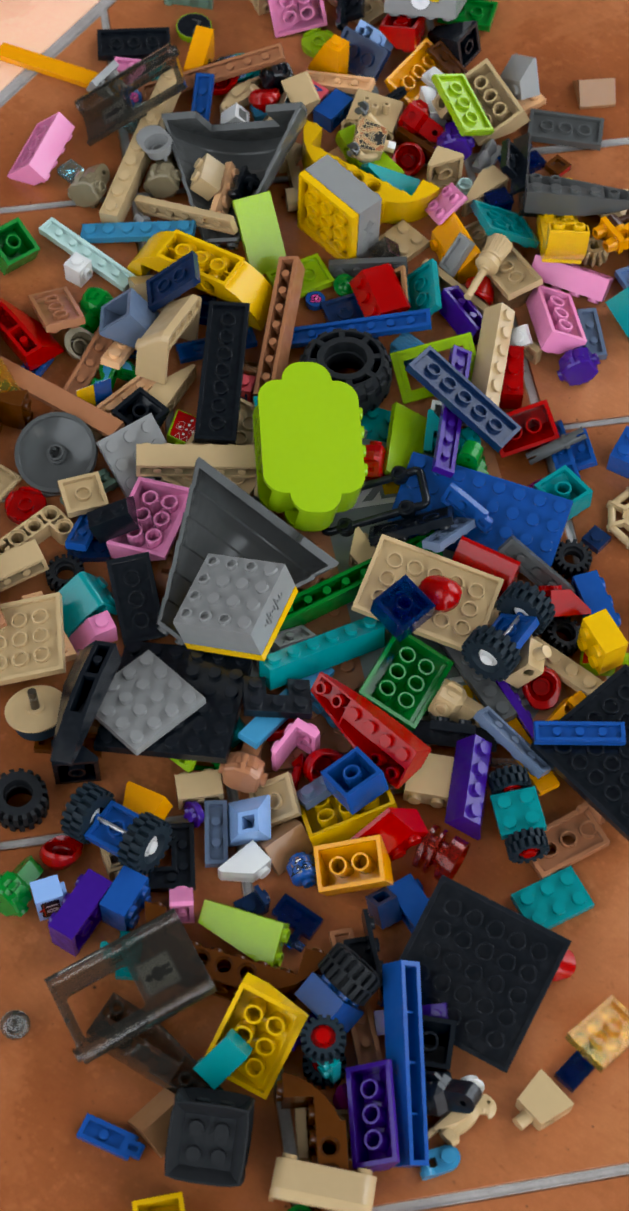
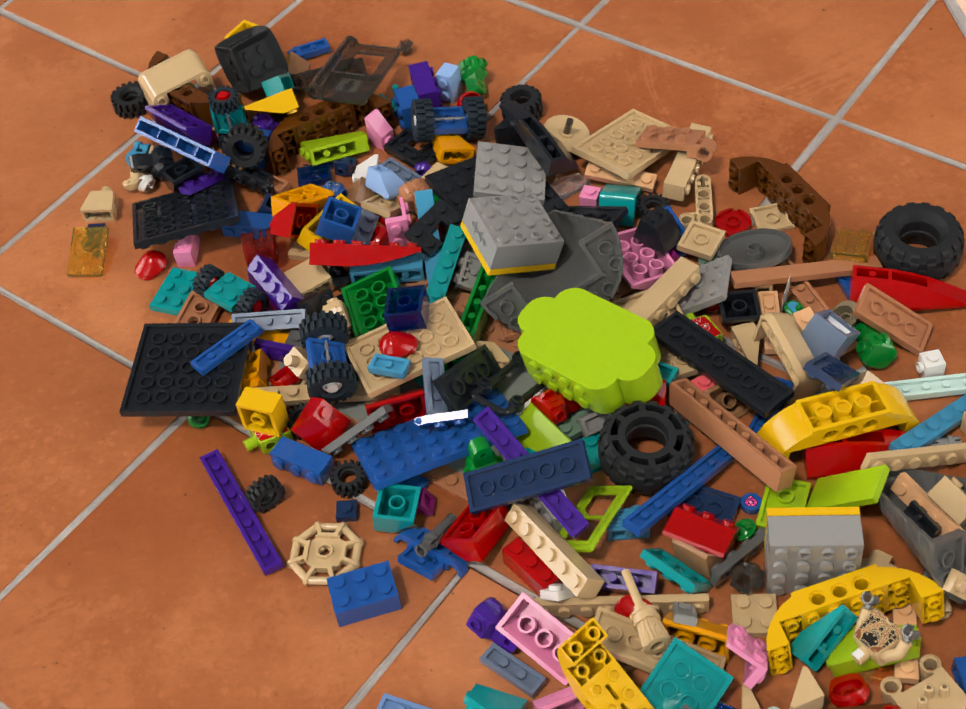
camera: 145 degrees right, 10 degrees down
(468, 576) = (389, 366): none -> dark azure plate

